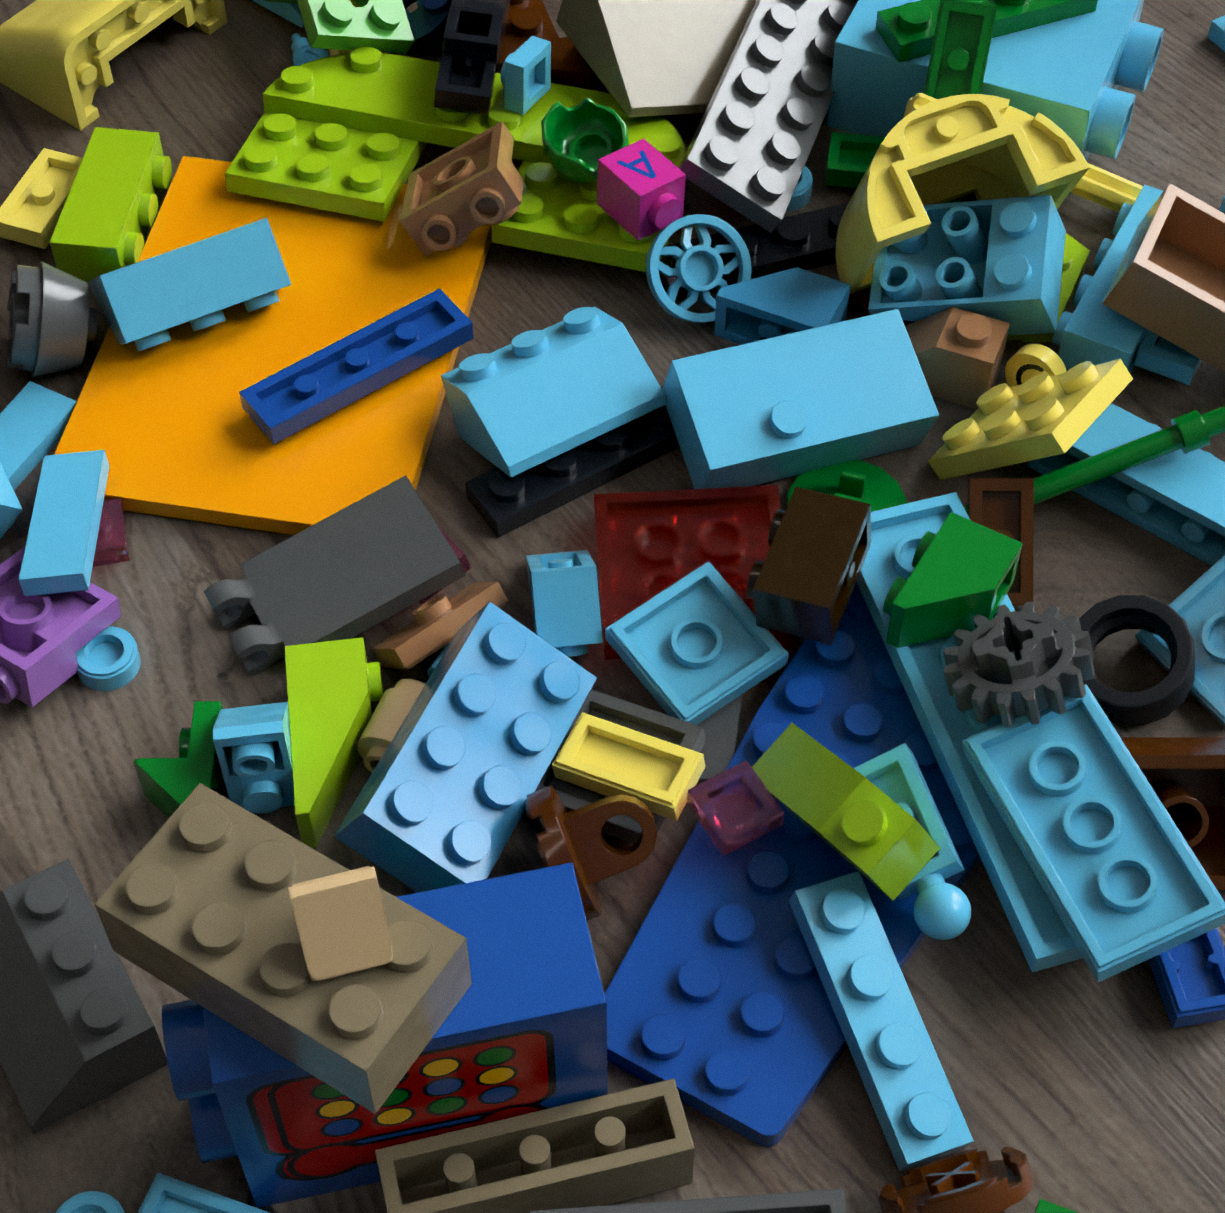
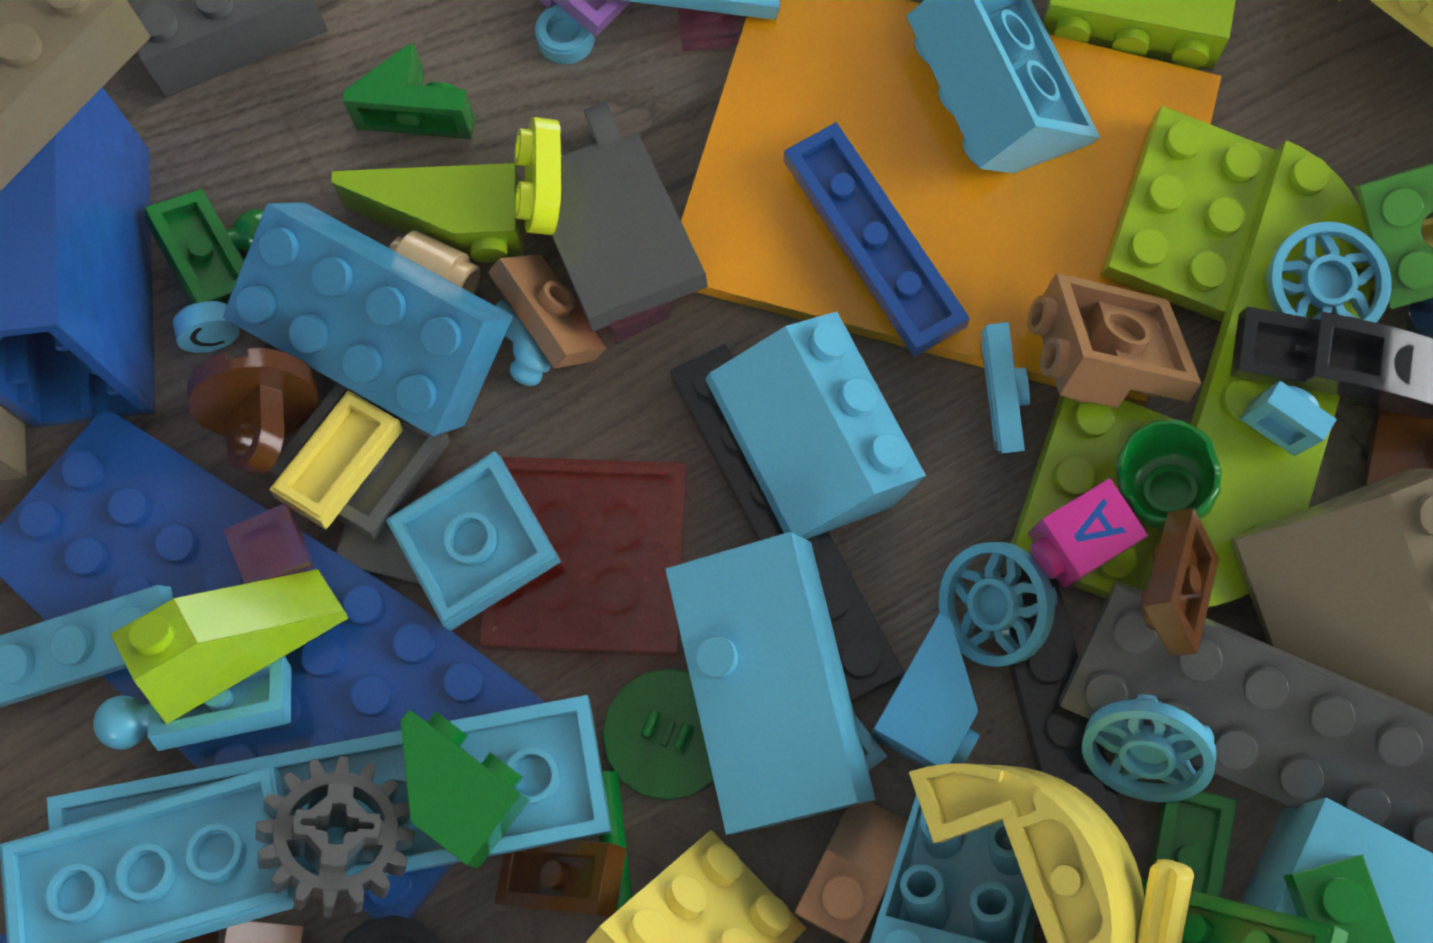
camera: 100 degrees right, 20 degrees up
(256, 756) = (407, 130): medium azure slope -> none
(303, 608) = (540, 192): none -> neon yellow plate
(395, 63) = (1330, 278): none -> medium azure wheel
(501, 272) = (1005, 388): none -> medium azure plate
(565, 600) = (564, 421): medium azure slope -> none
(698, 110) = (1180, 583): none -> reddish brown plate
(810, 159) = (1149, 749): none -> medium azure wheel
(810, 565) = (507, 647): dark brown brick -> none

